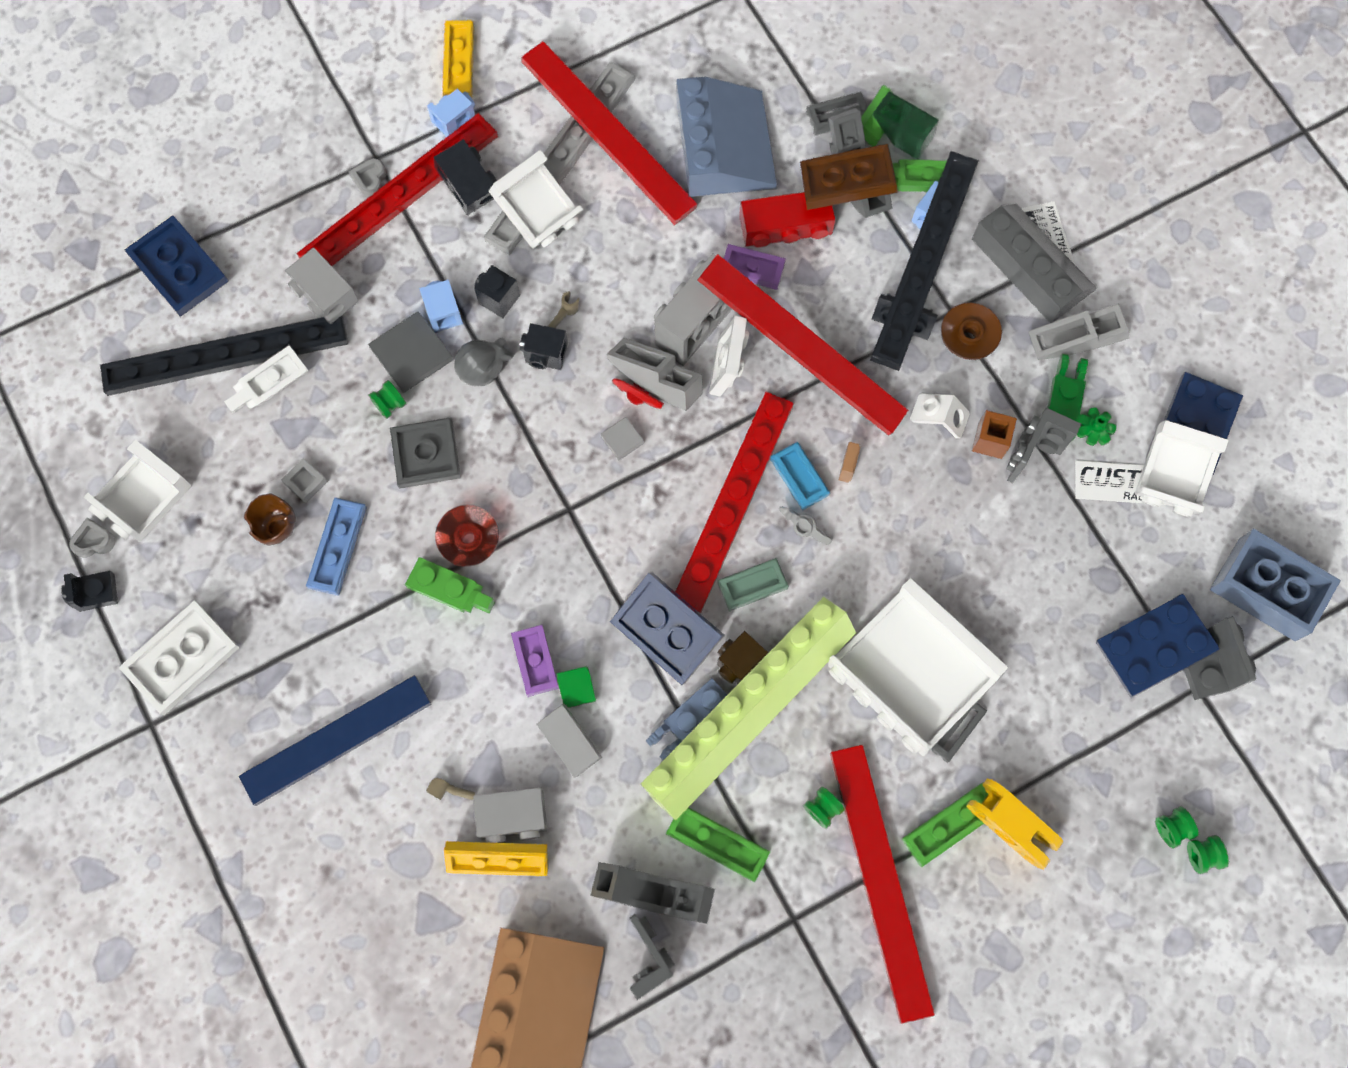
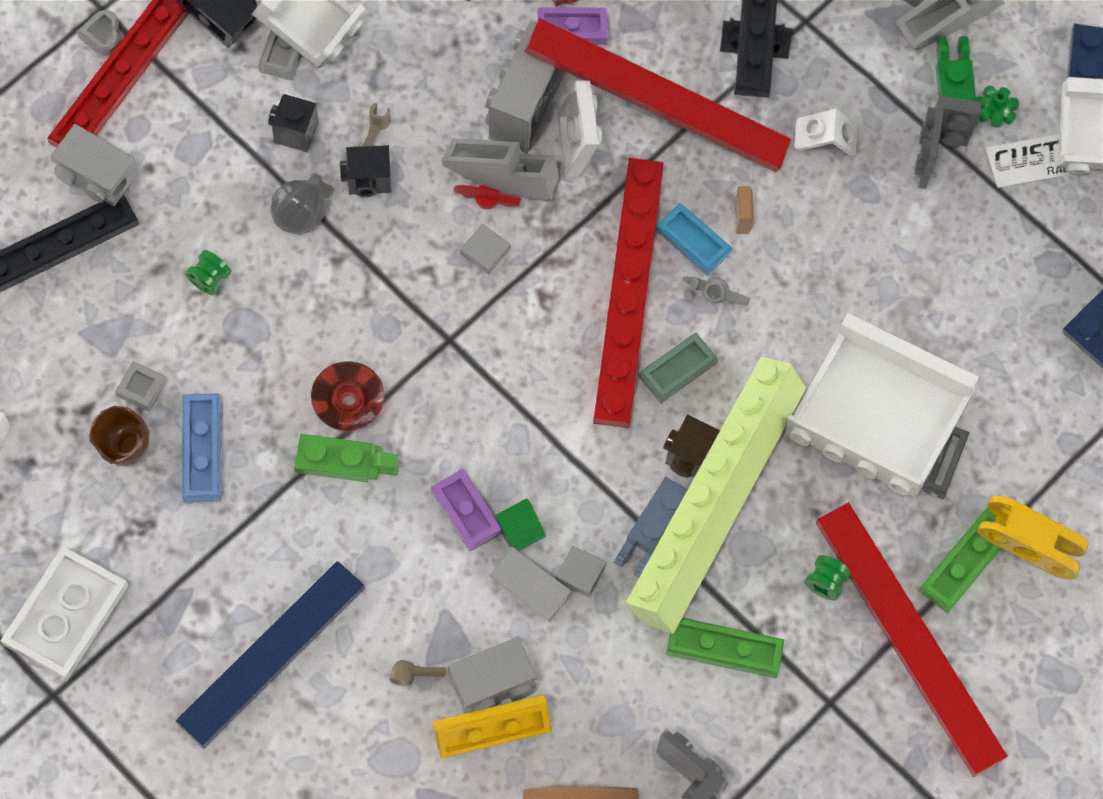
camera: 20 degrees left, 5 degrees down
(267, 380) = (62, 286): white hinge -> none
(410, 352) = (215, 214): dark grey tile -> none
(425, 453) = (268, 320): dark grey tile -> none
(441, 305) = (235, 154): light blue brick -> none
(615, 740) = (580, 571): none -> light grey tile
(652, 892) = (692, 714): dark grey arch -> none
(667, 628) = (601, 435): plate -> none
(971, 319) = (834, 24): reddish brown dish -> none
(994, 434) = (891, 140): dark orange brick -> none

